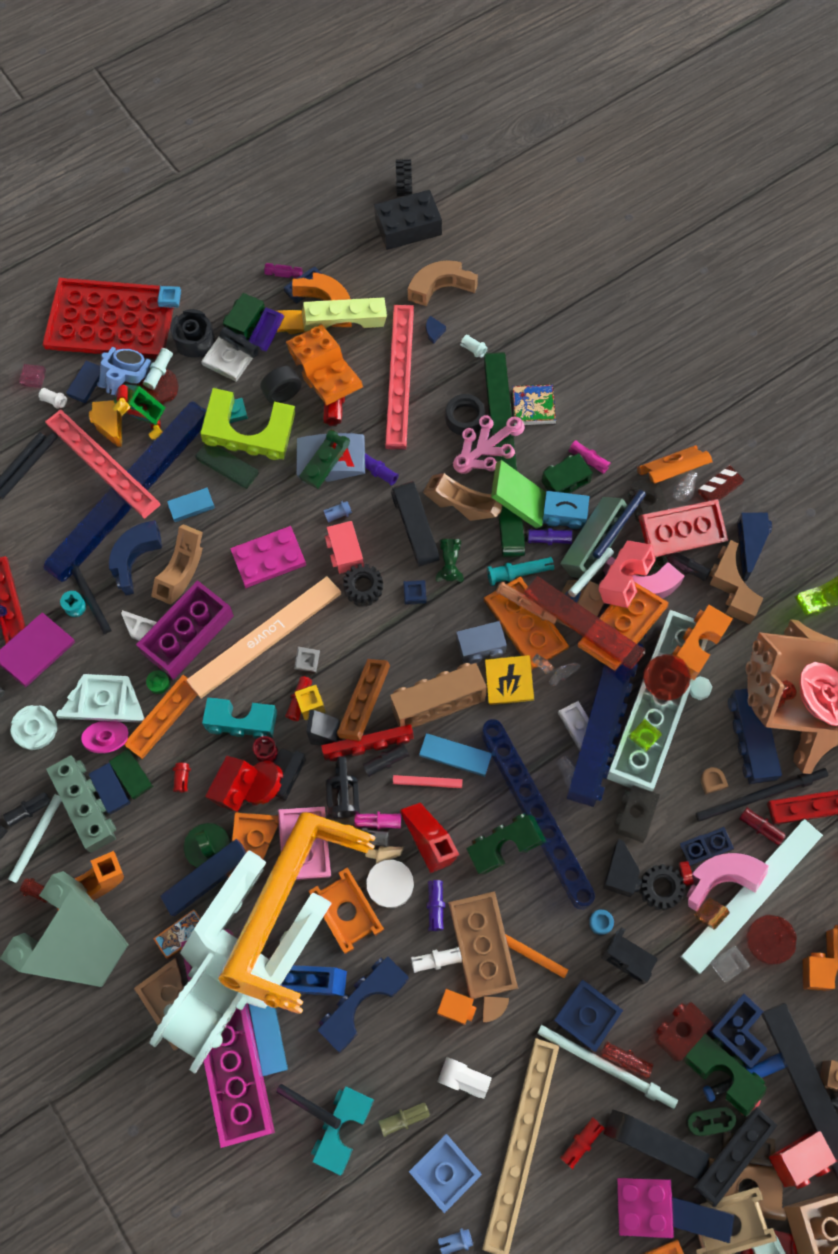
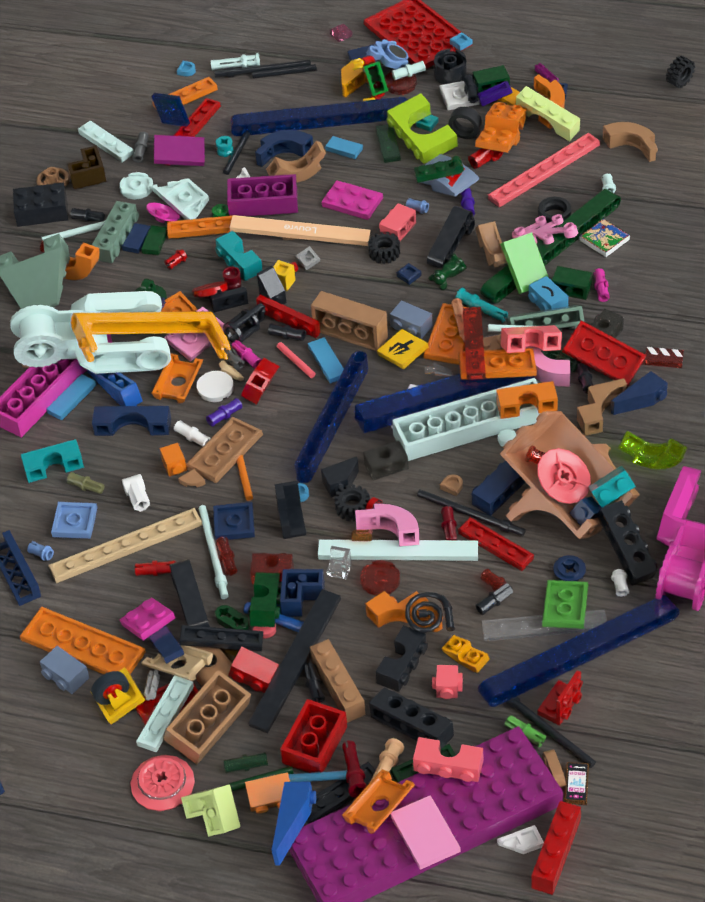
camera: 50 degrees right, 20 degrees down
(58, 400) = (338, 50): white pin -> none
(103, 464) = (320, 92): coral tile -> none
(232, 783) = (195, 277): red brick -> none
(308, 1106) = (49, 434): black bar -> none
(363, 699) = (307, 294): dark orange plate -> none
(408, 219) = (655, 95): black brick -> none
(434, 329) = (596, 161): dark blue tile -> none
(487, 851) = (305, 408): dark green arch -> none
(542, 663) = (429, 351): clear tile -> none
(550, 536) = (520, 303): dark purple pin -> none
(619, 524) = (564, 318): dark blue bar -> none
(645, 735) = (434, 418): clear neon green tile -> none
(666, 466) = (645, 319): orange piece -> none
(667, 677) = (482, 397): clear red tile -> none
(685, 487) = (638, 340): clear cone -> none
(707, 846) = (415, 509): dark blue slope -> none

